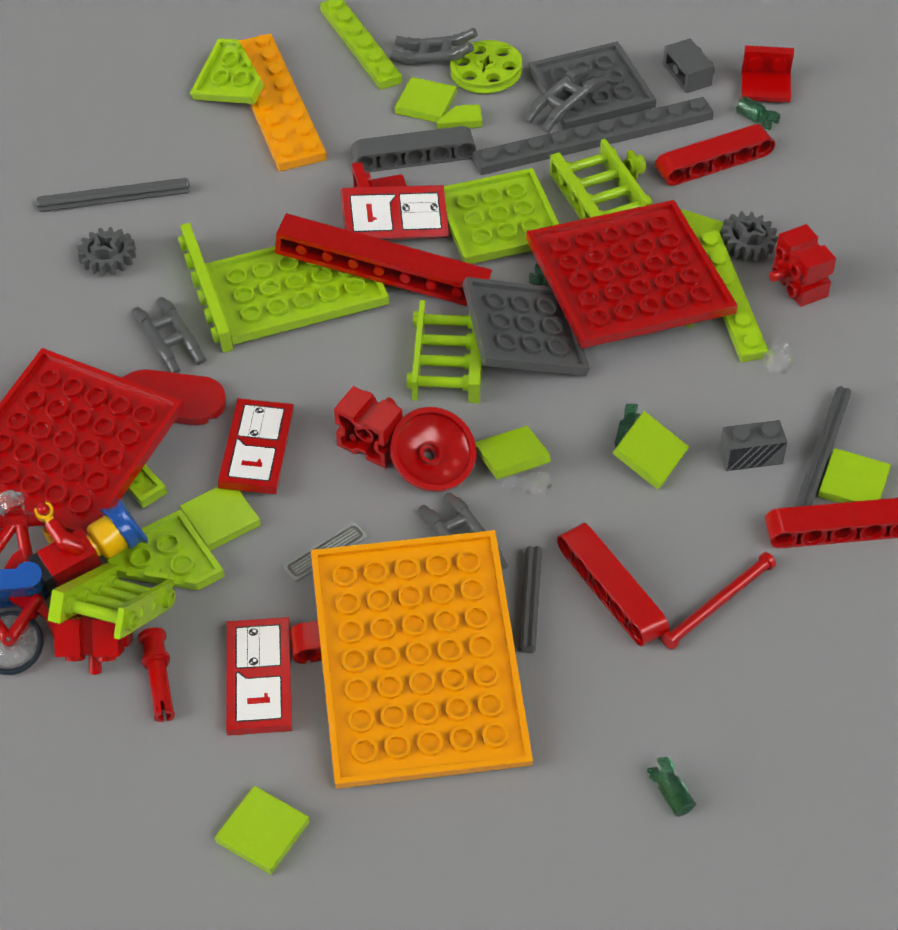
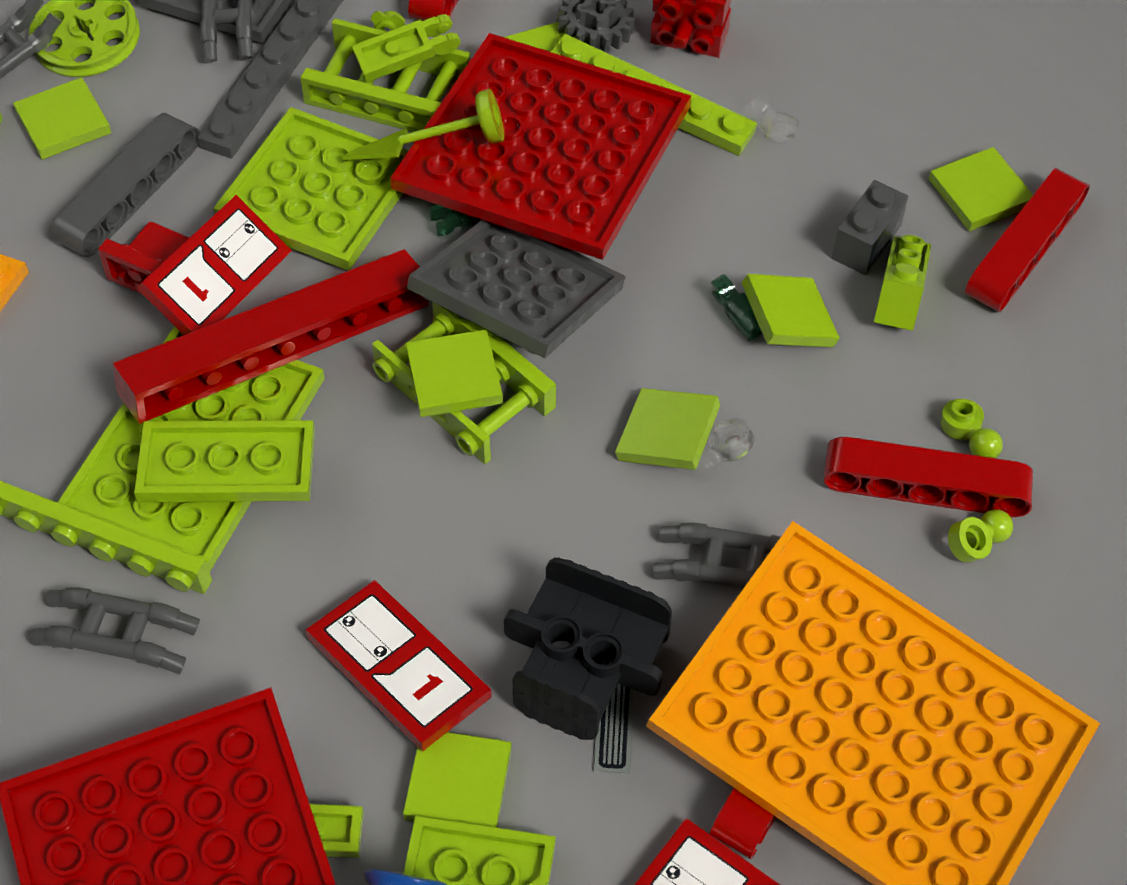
camera: 50 degrees left, 5 degrees up
(200, 394) = (223, 675): red tile -> none
(291, 299) = (225, 461): none -> lime plate
(338, 503) = (598, 621): none -> black piece
(366, 425) = (506, 527): red brick -> none
(436, 340) = (454, 373): none -> lime tile
(444, 438) = (611, 484): red dish -> none
(461, 116) = (131, 108): lime tile -> none
(530, 599) = (870, 557): dark grey axle -> none
(604, 233) = (390, 146): none -> lime piece
(616, 636) = (973, 537): none -> lime plate
(618, 175) = (405, 46): none -> lime hinge
(671, 638) = (1017, 332): red bar -> none
(672, 578) = (964, 421): none -> lime plate
(734, 485) = (903, 282): none -> lime slope
(823, 447) = (923, 184): dark grey axle -> none

